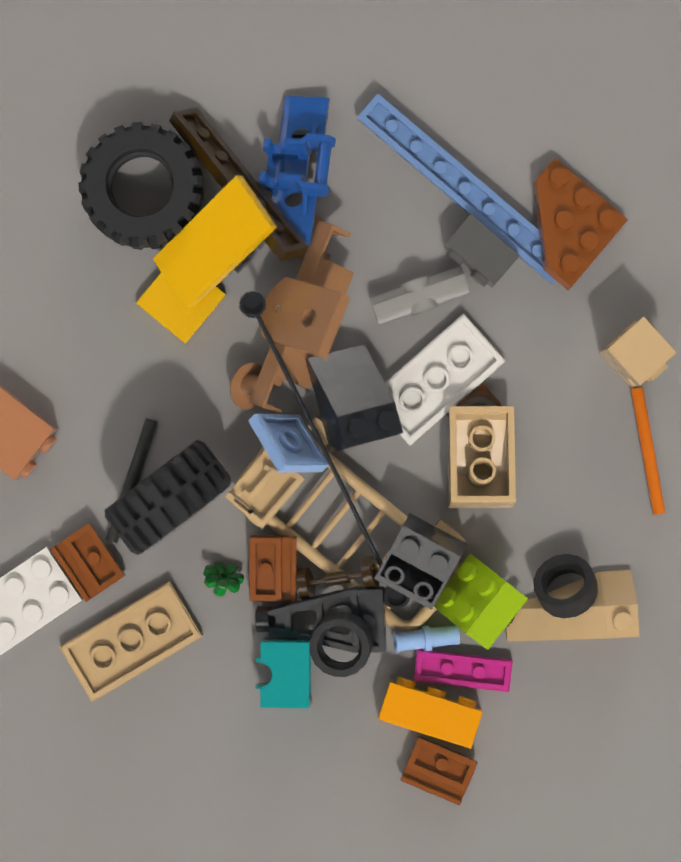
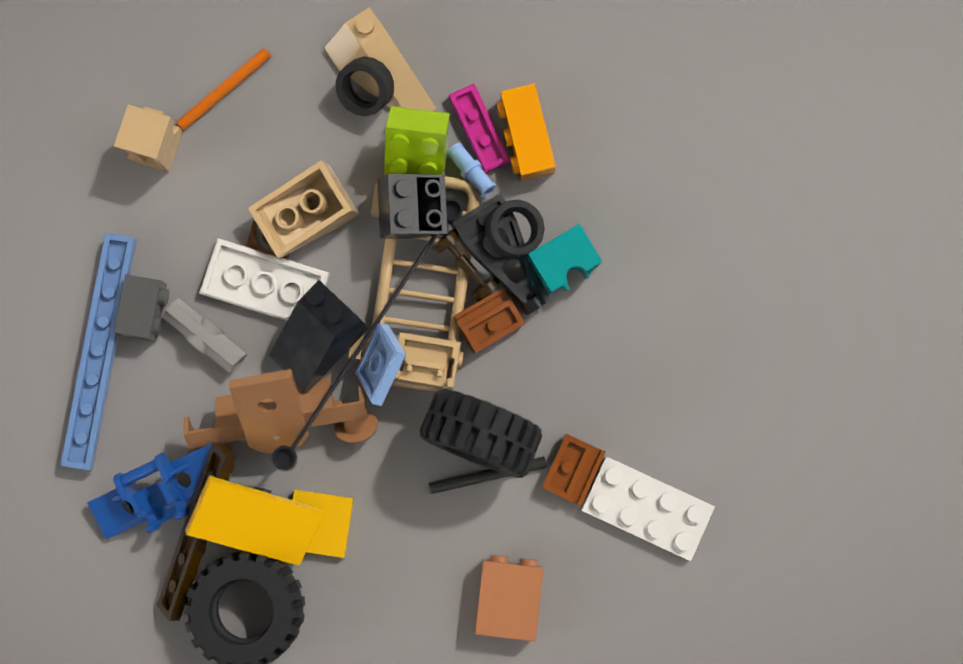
camera: 120 degrees left, 5 degrees down
(131, 641) = (614, 398): tan tile -> none
(222, 578) = (521, 355): green plant -> none
(438, 770) = (567, 100): dark orange plate -> none
(571, 223) = (76, 250): dark orange plate -> none

